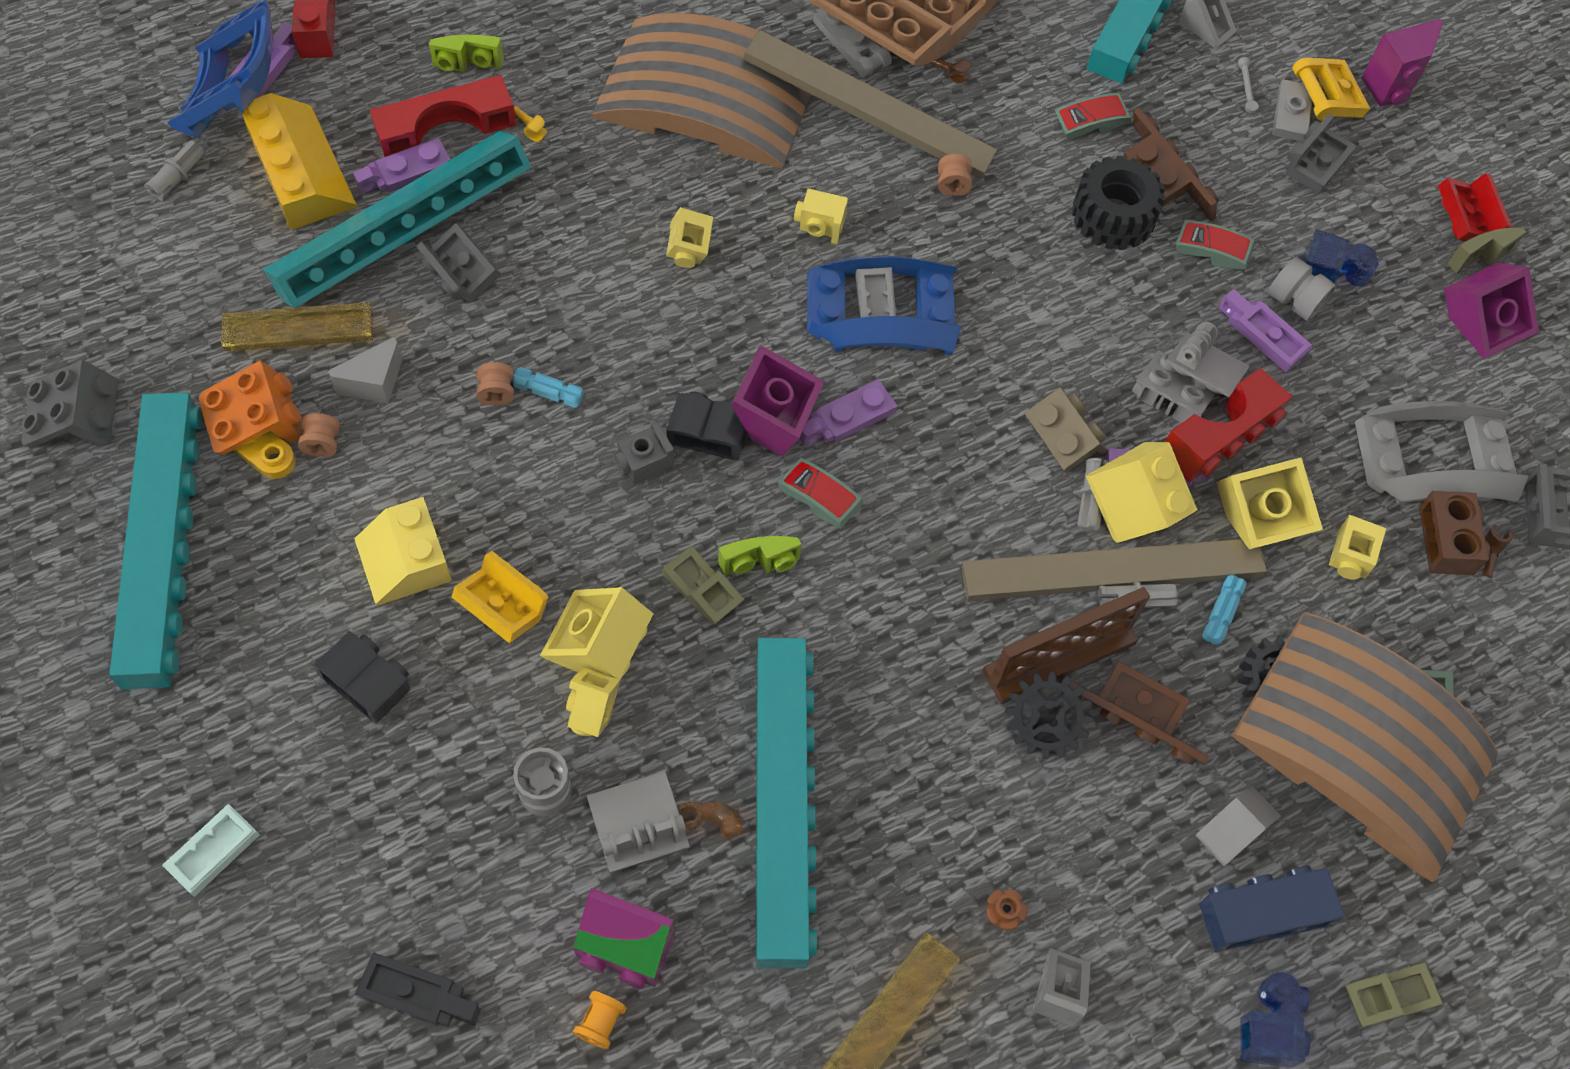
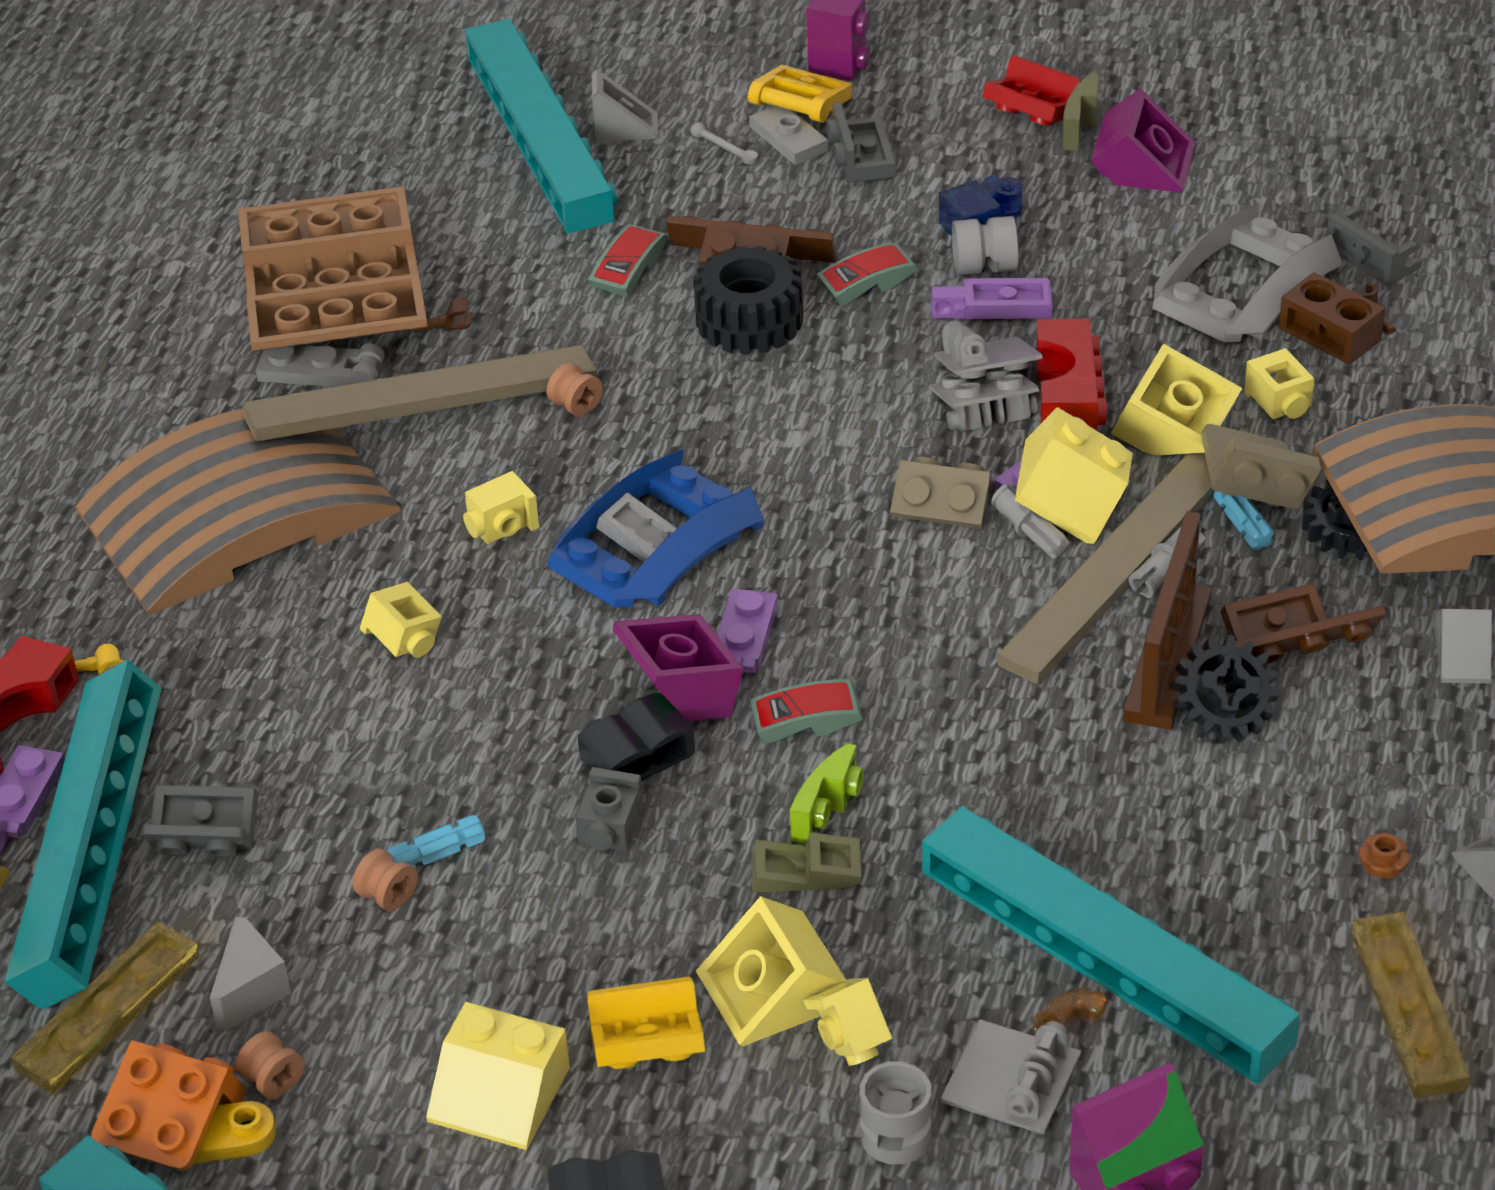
camera: 40 degrees left, 20 degrees down
(1261, 587) = (1257, 467): none -> dark tan bracket

